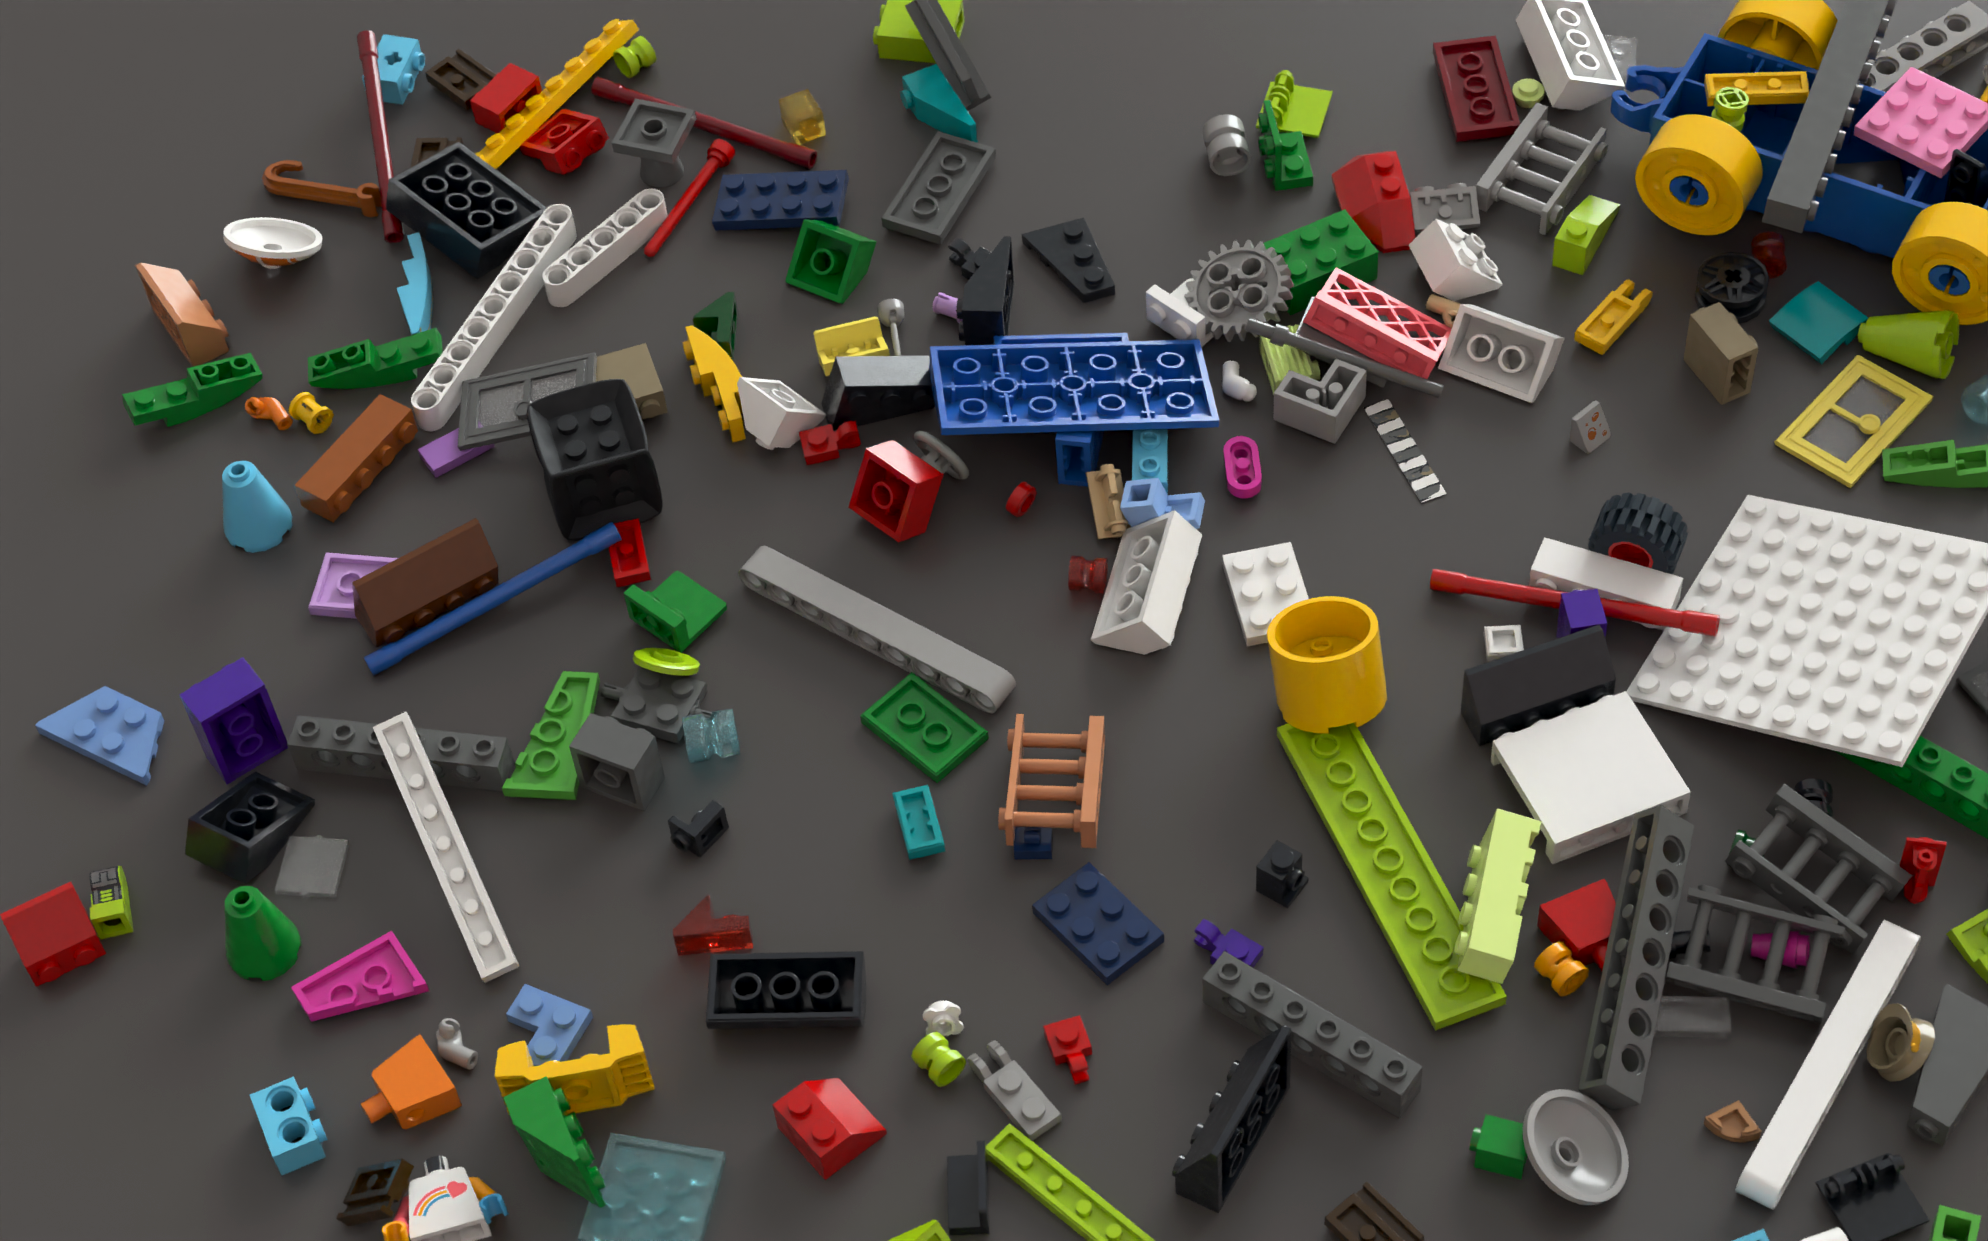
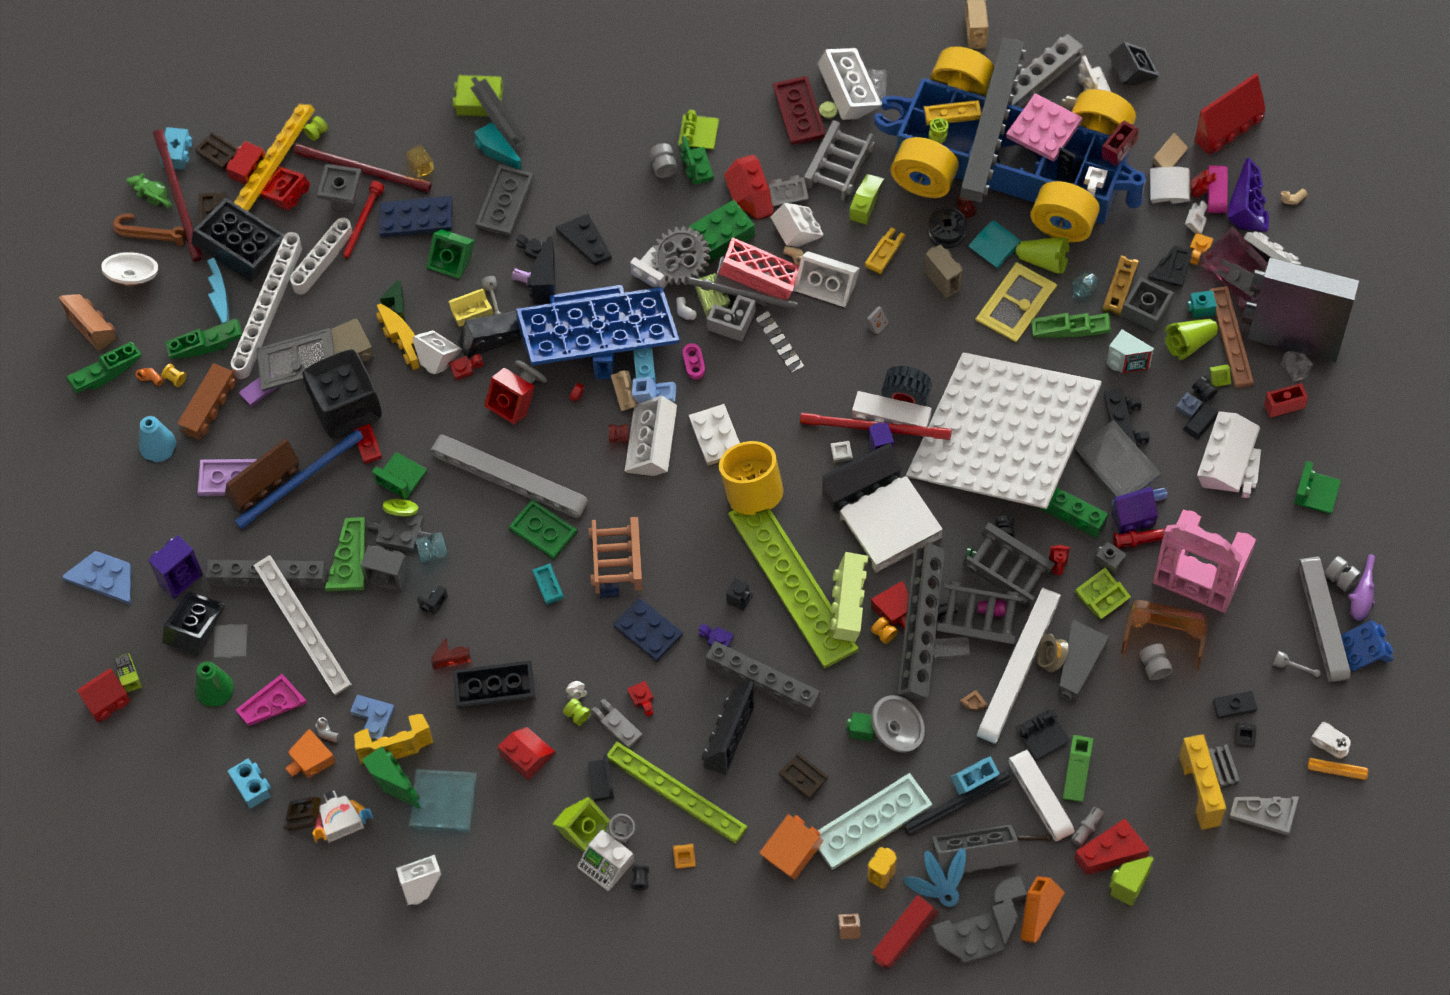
camera: 10 degrees left, 10 degrees up
(343, 129) = (153, 190): none -> bright green animal

